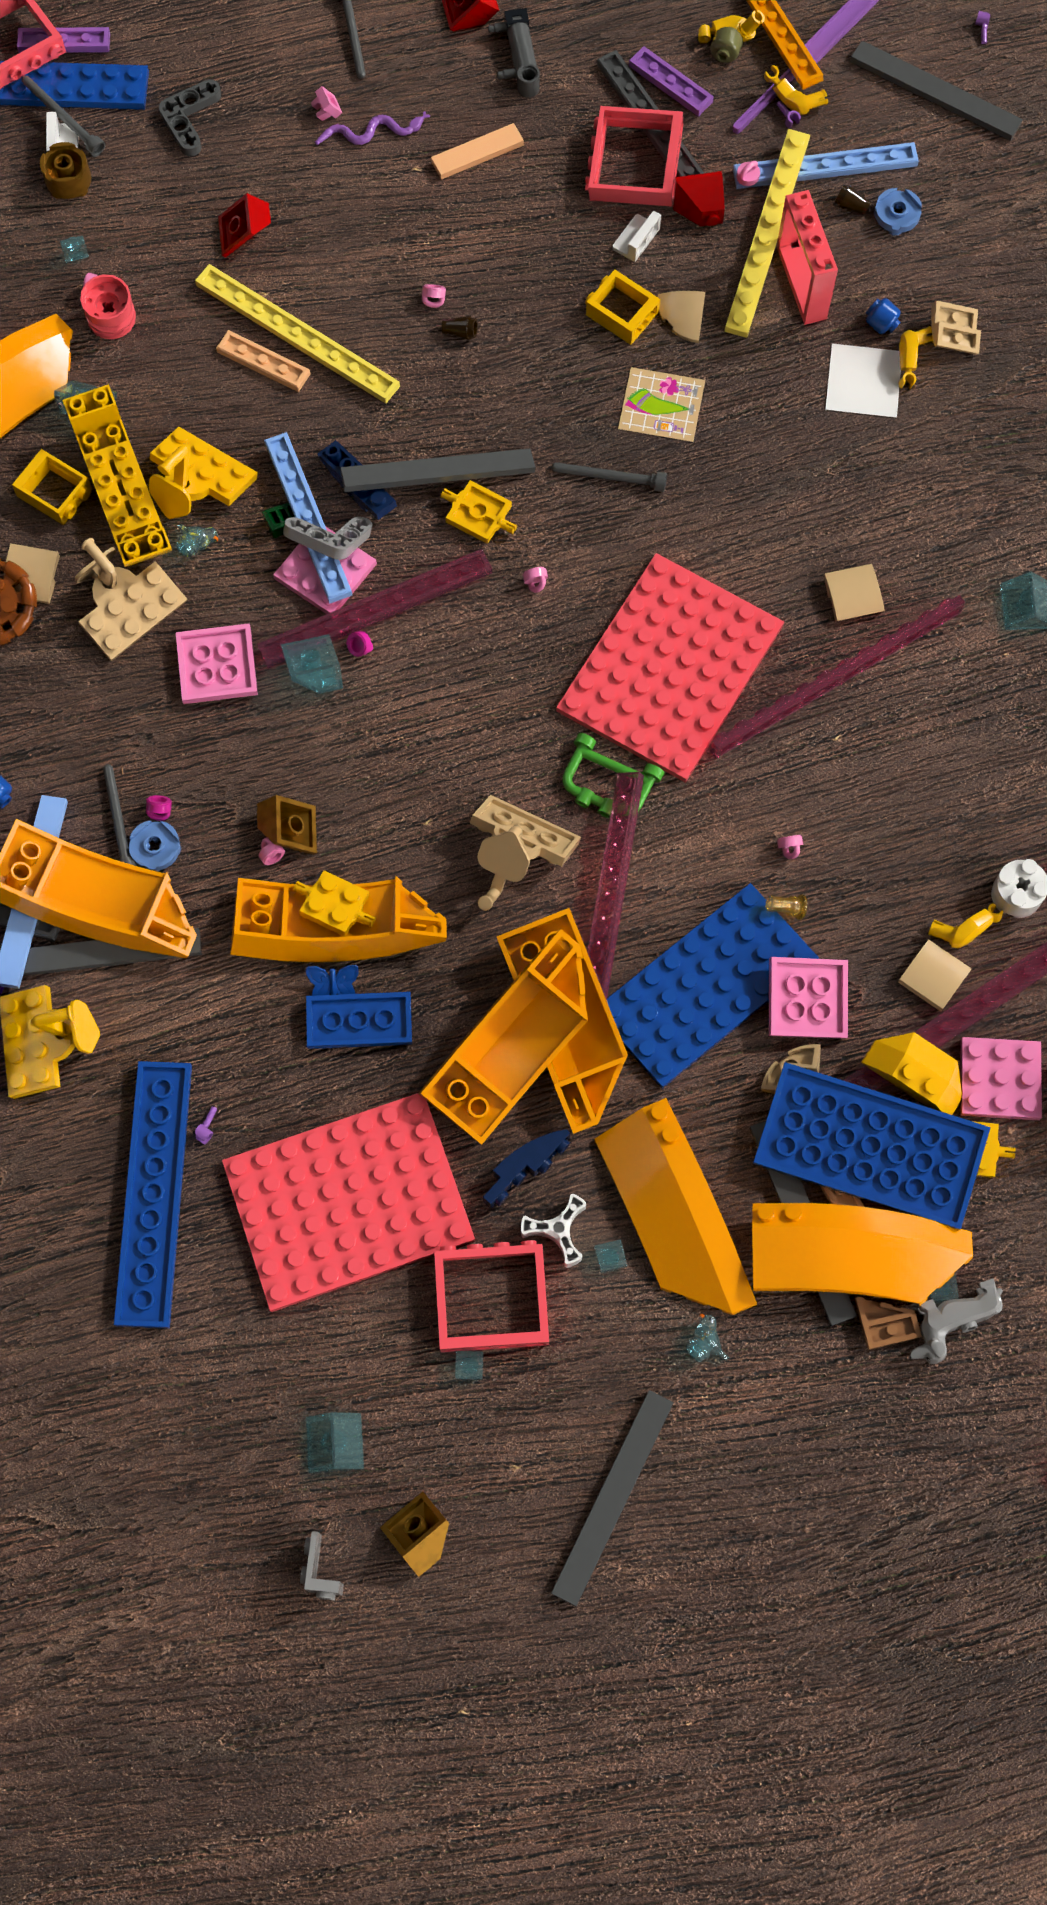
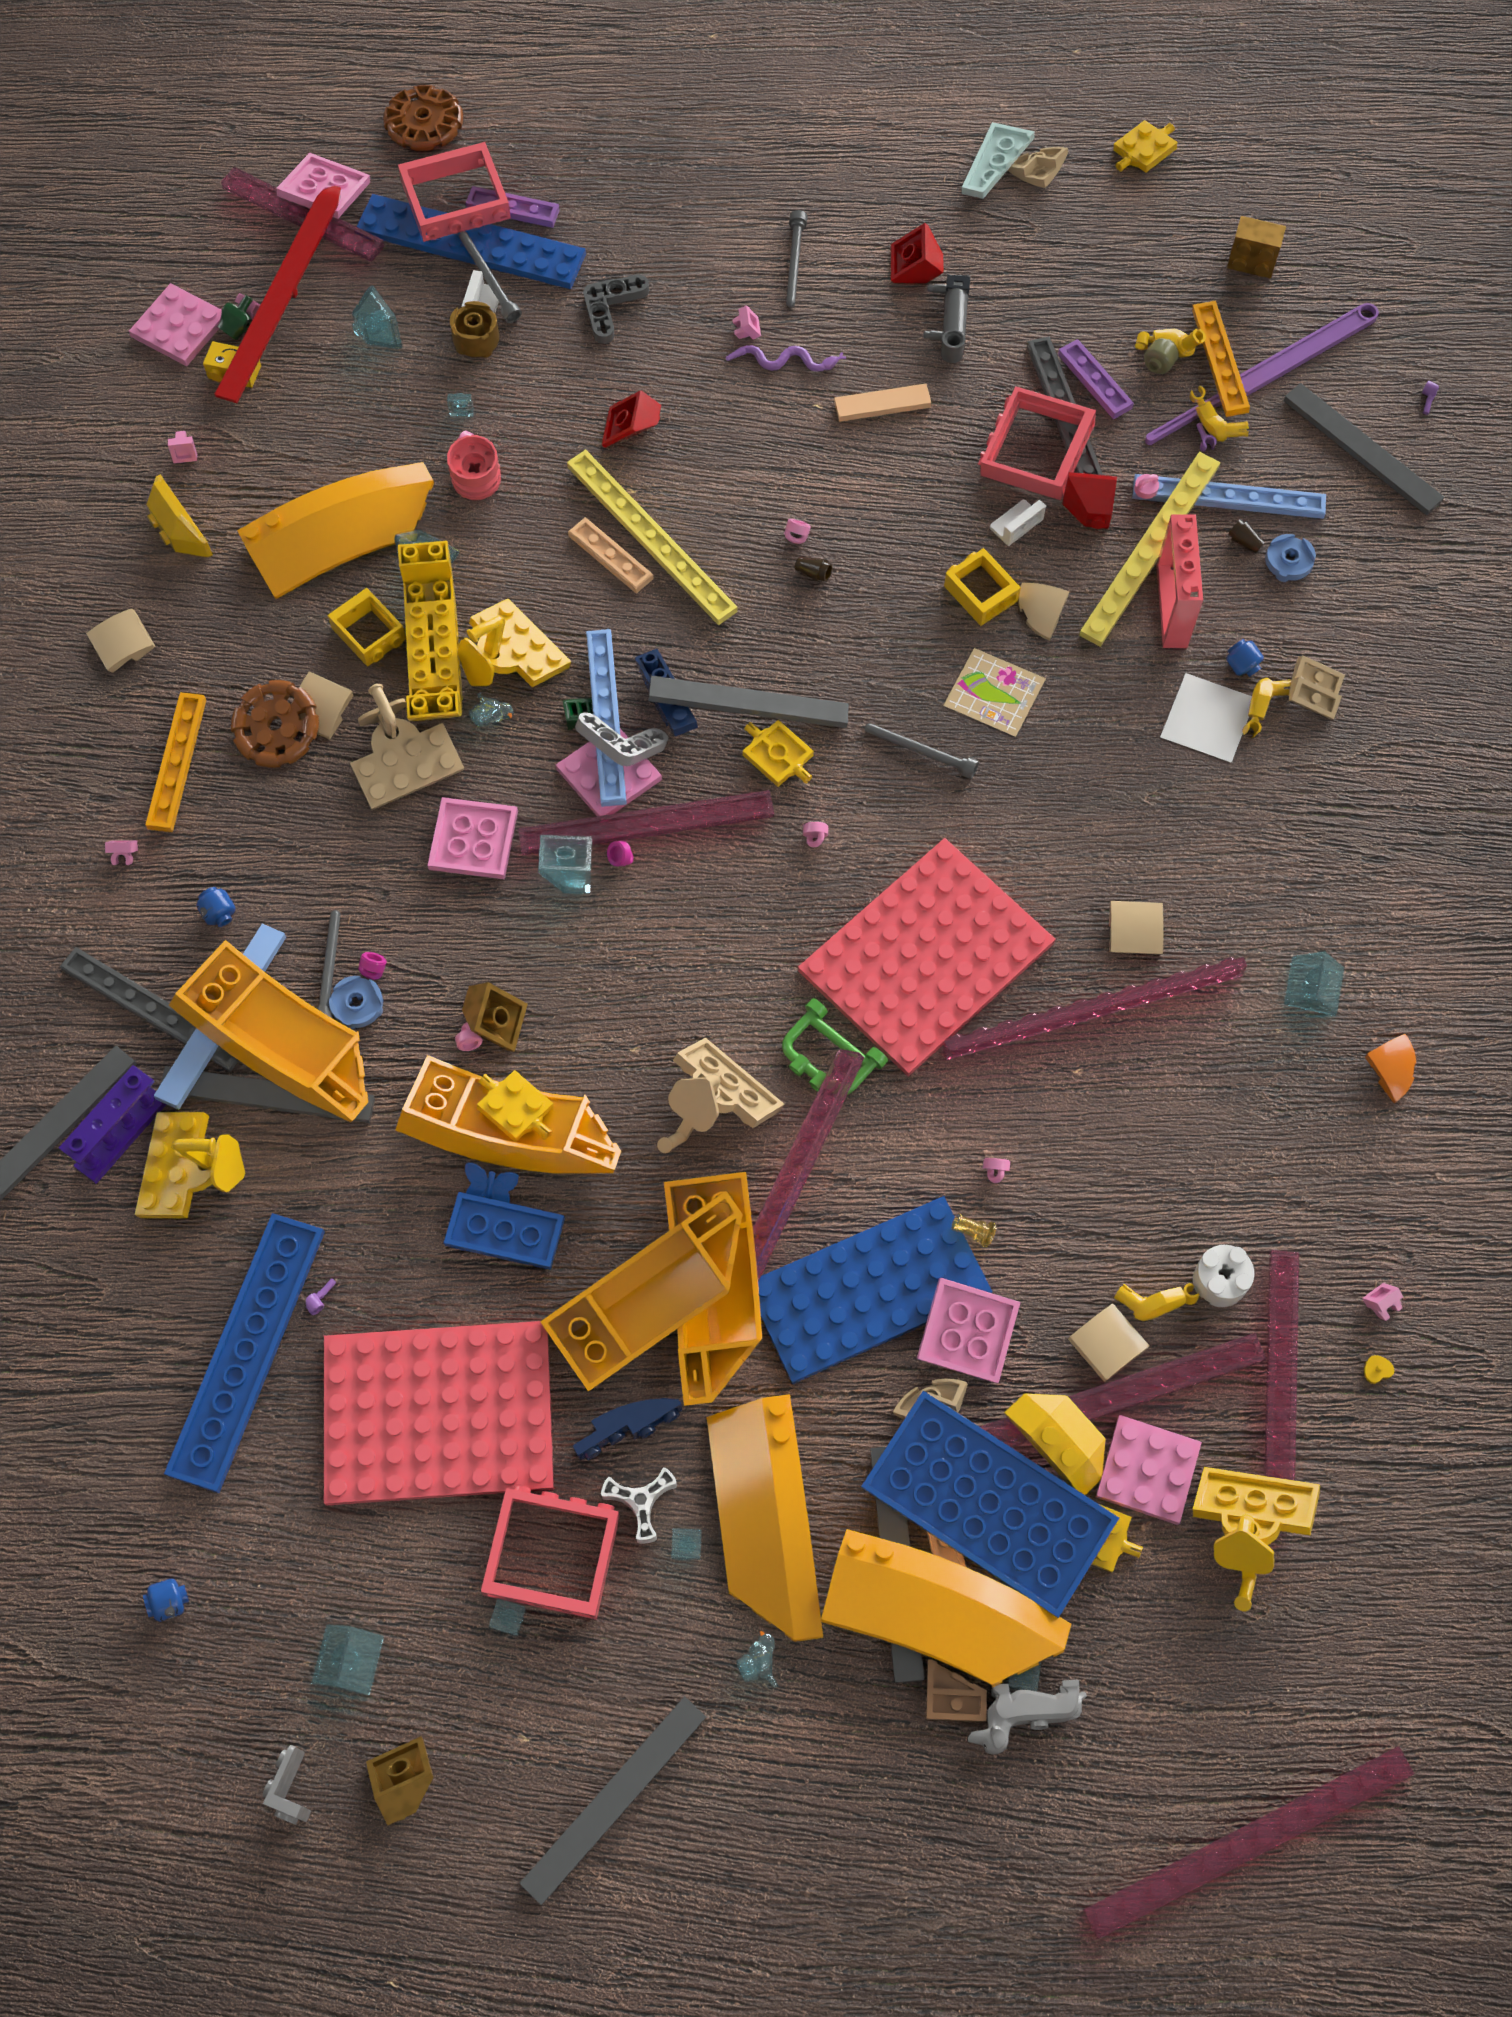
camera: 15 degrees right, 5 degrees down
(152, 1436) = (165, 1600): none -> blue head

